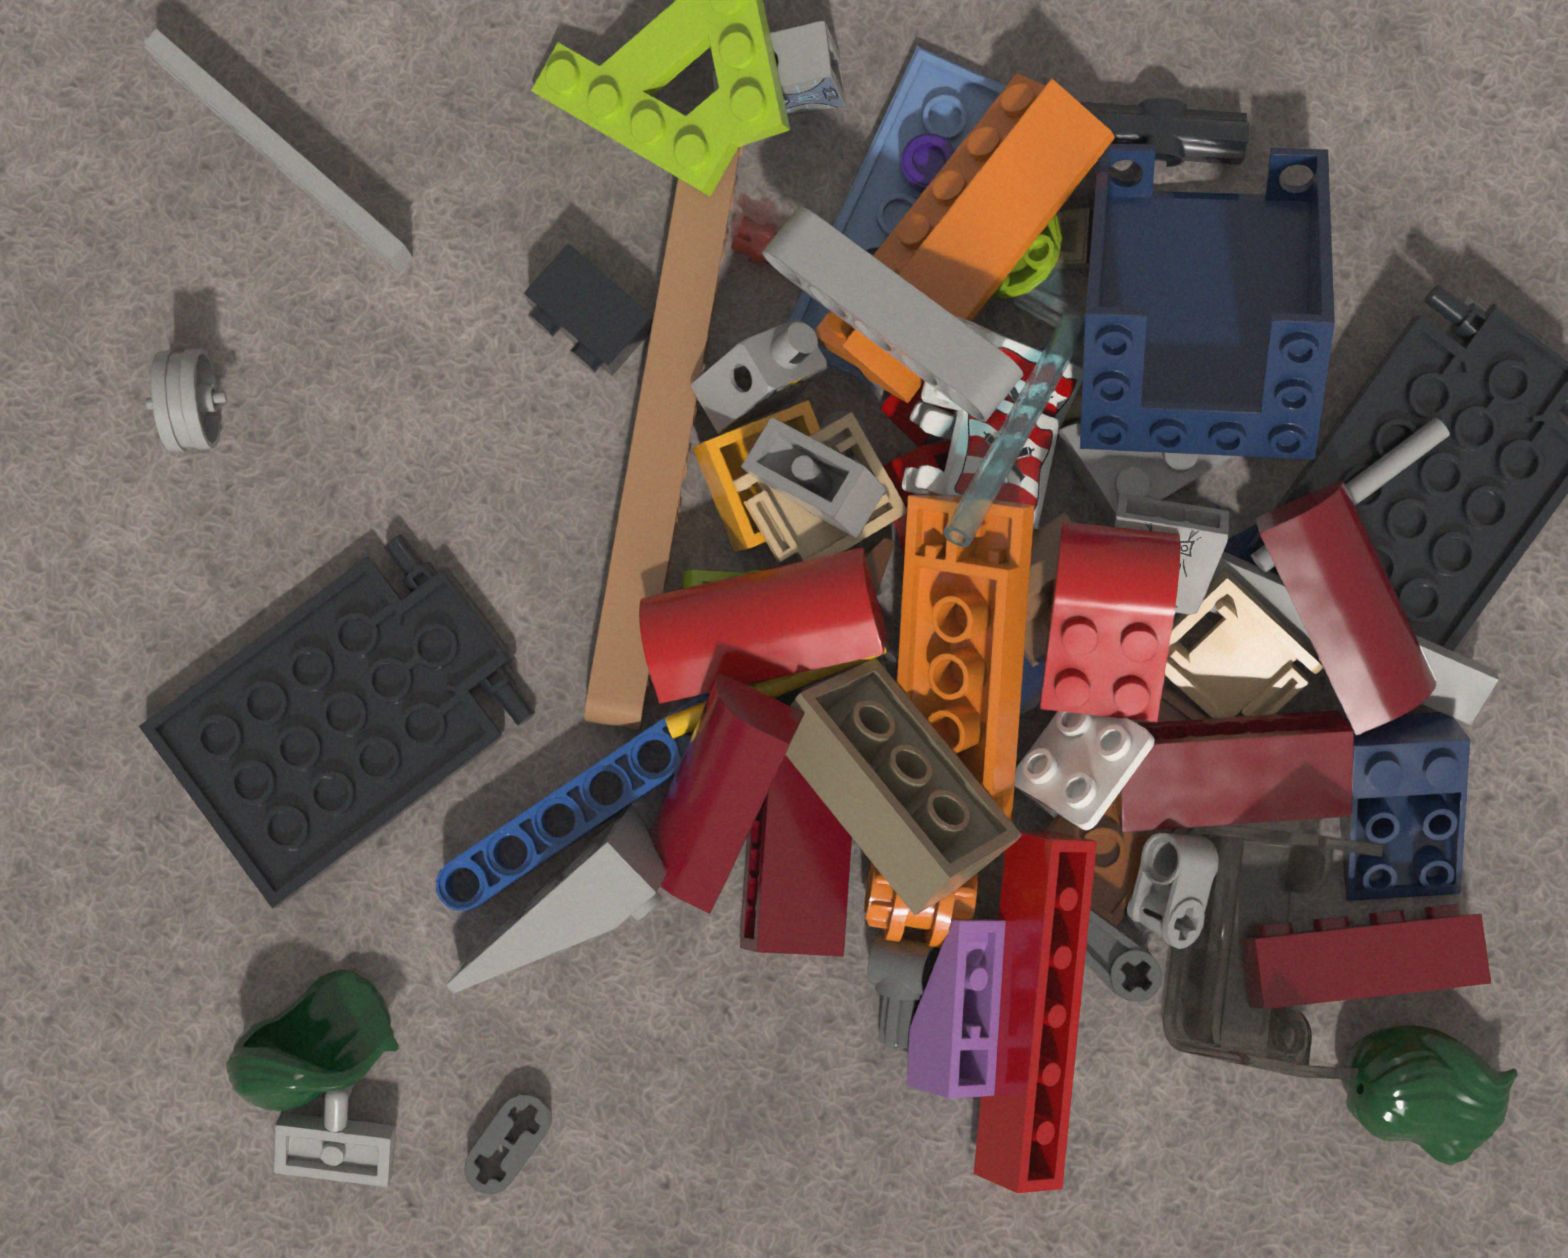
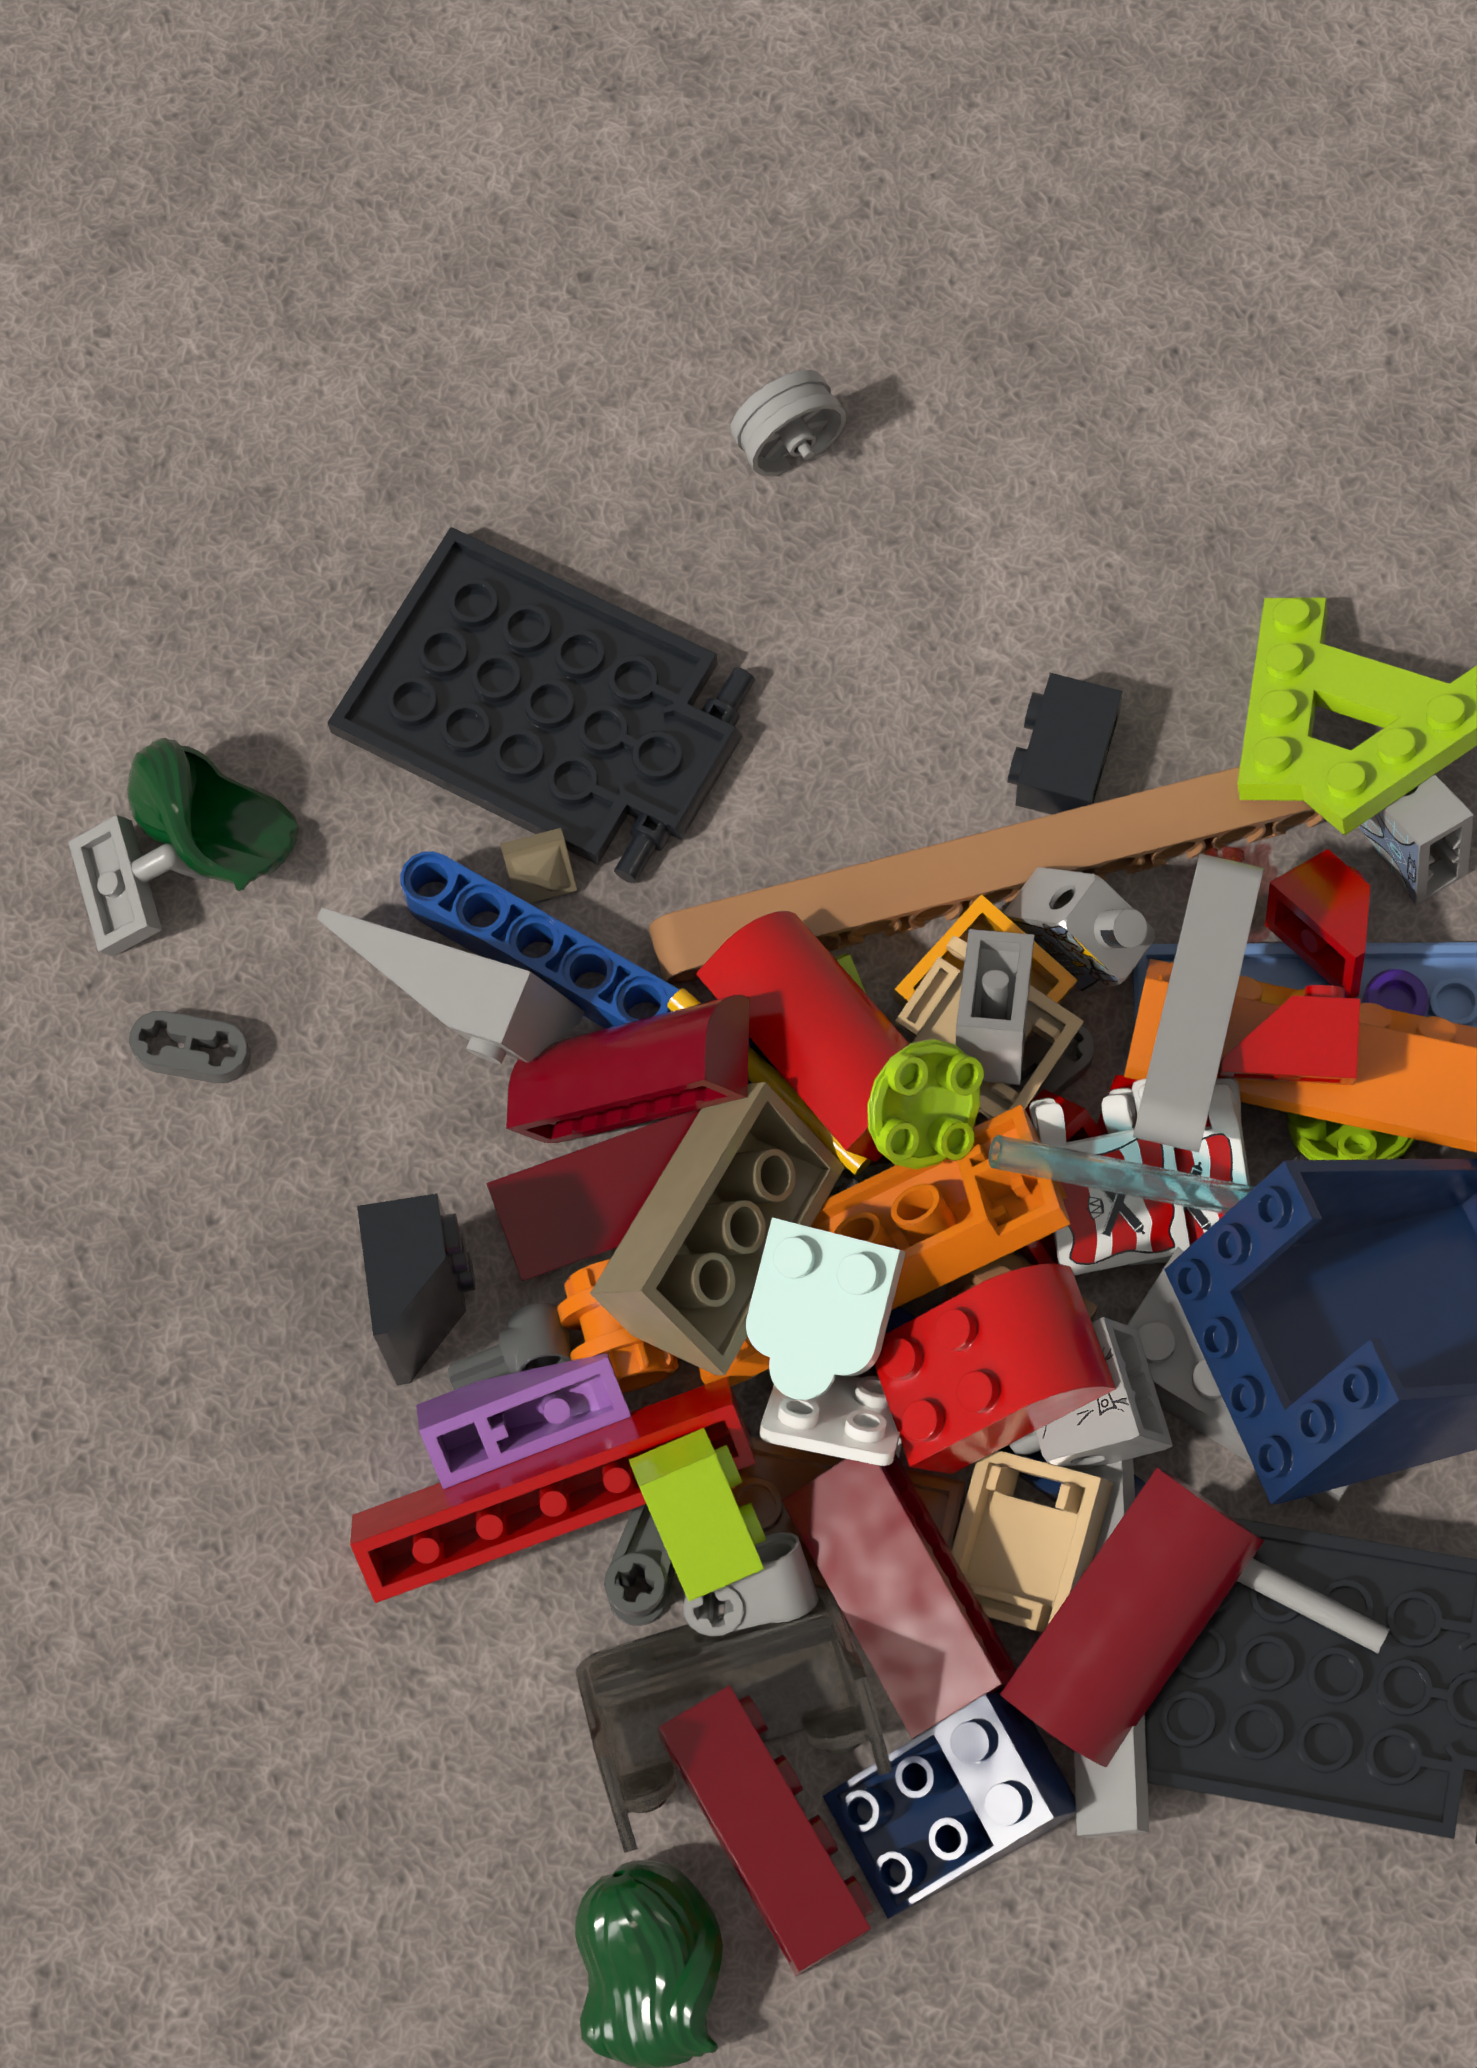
camera: 70 degrees right, 15 degrees down
(277, 151) = (1076, 400): light grey tile -> none
(488, 787) = (539, 866): none -> dark tan tile
(818, 1053) = (413, 1278): none -> black slope
(841, 178) = (1323, 917): none -> red slope
(883, 573) = (925, 1104): none -> lime dish
(961, 248) = (1302, 1041): none -> red slope
(1005, 734) = (820, 1306): none -> light aqua plate
(1122, 906) = (697, 1513): none -> lime brick

